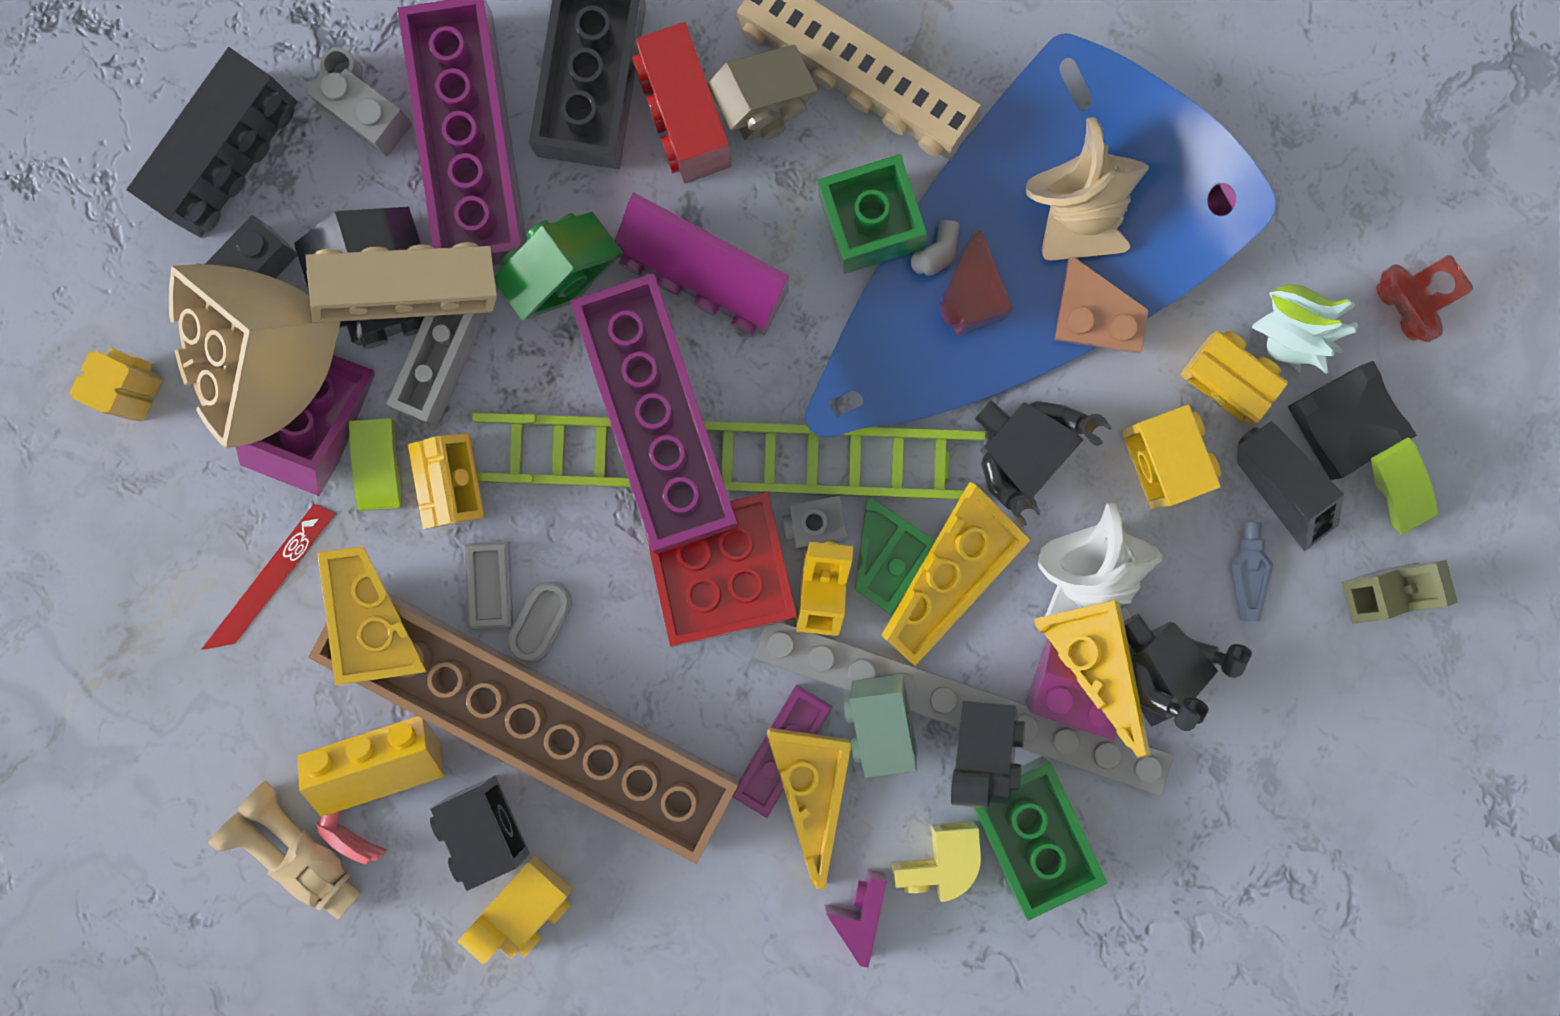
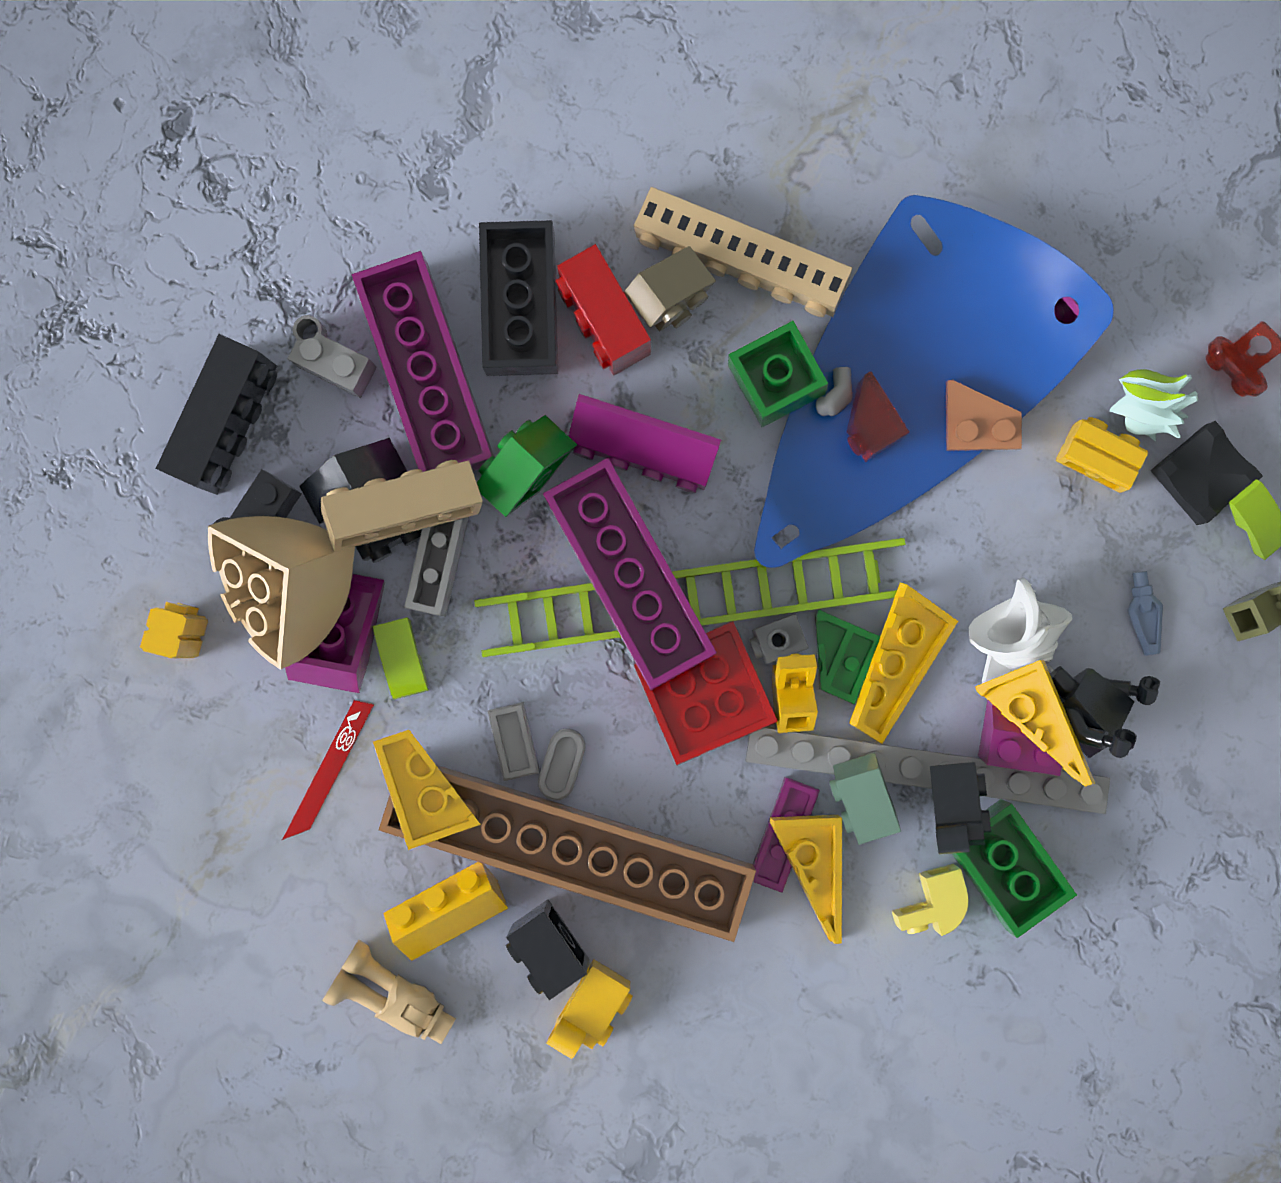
camera: 15 degrees left, 0 degrees up
(346, 841) = (435, 977): coral piece -> none
(446, 480) = (463, 661): yellow brick -> none
(860, 927) = (876, 969): magenta slope -> none
(1030, 448) = (944, 545): black torso -> none
(1086, 200) = (953, 329): tan helmet -> none
(1172, 457) = (1064, 532): yellow brick -> none
(1290, 484) = (1165, 535): black slope -> none

